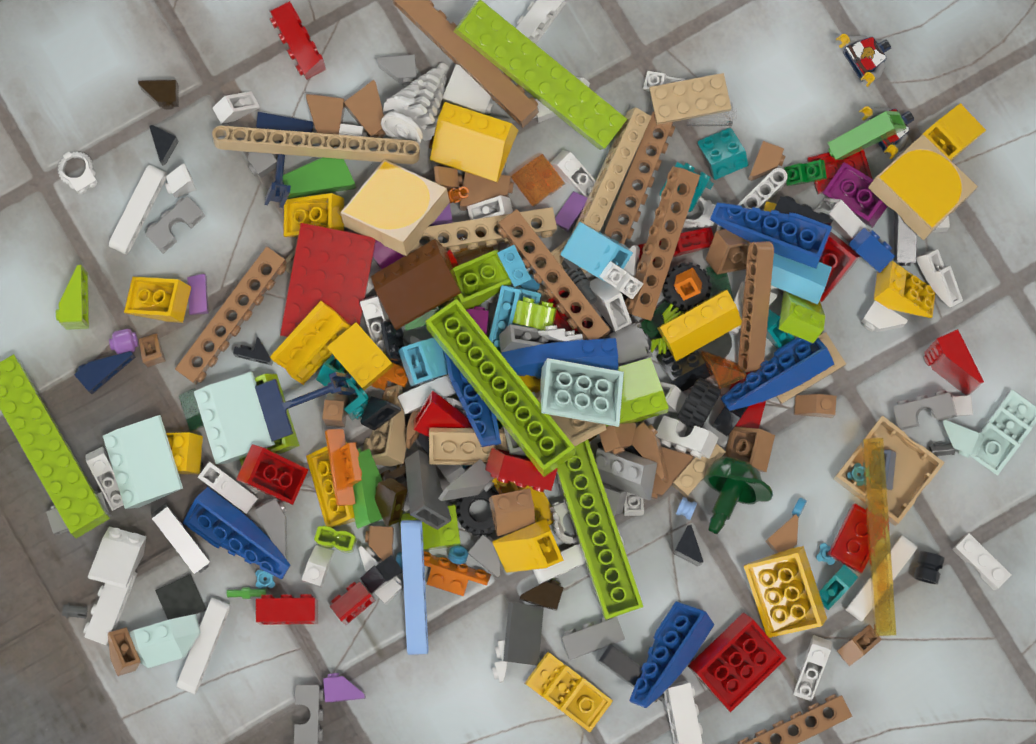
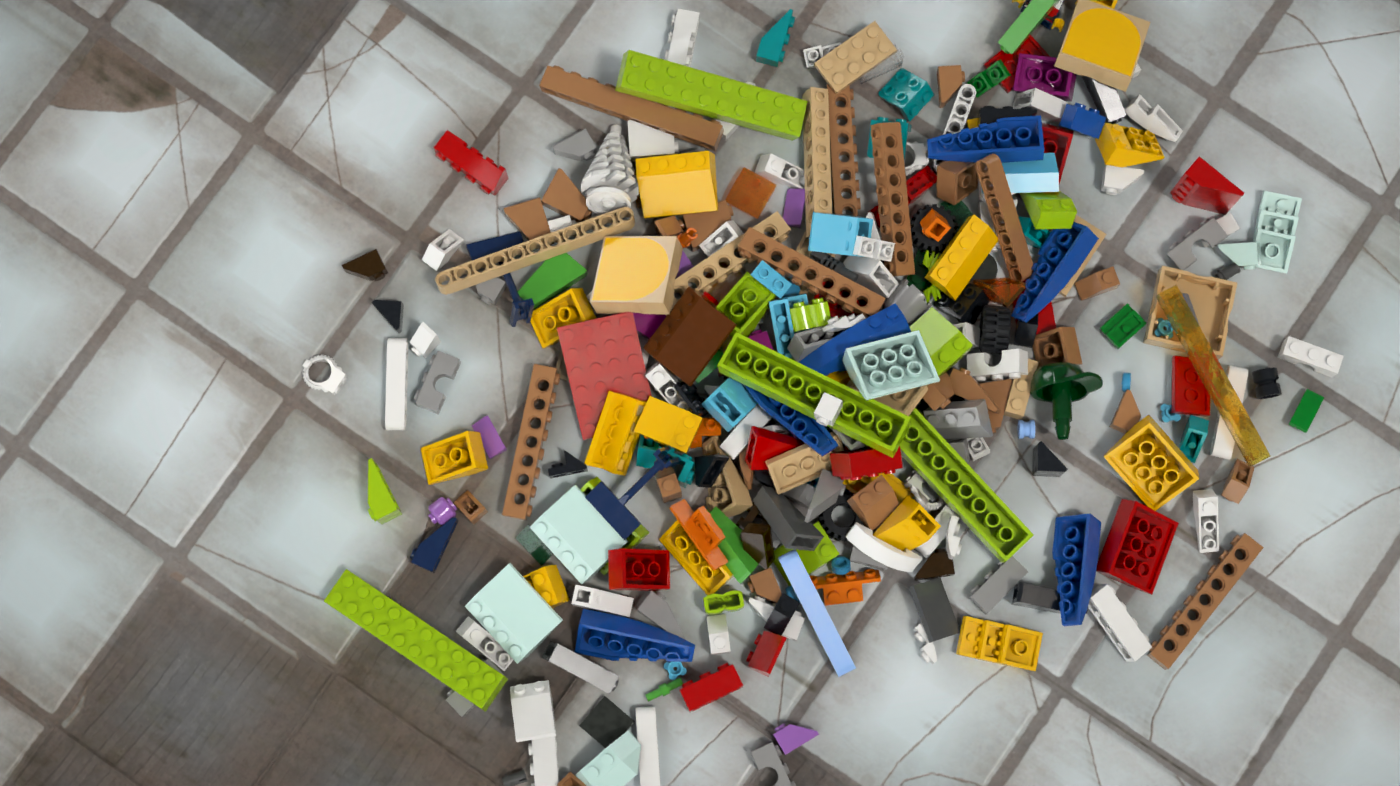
camera: 25 degrees left, 0 degrees up
(499, 559) = (881, 551): none -> white slope
(502, 406) = (828, 410): none -> white brick
(567, 579) = (952, 542): none -> white slope
(623, 52) = (773, 41): none -> teal slope
(820, 455) = (1122, 326): none -> green plate
(954, 609) = (1306, 410): none -> green slope

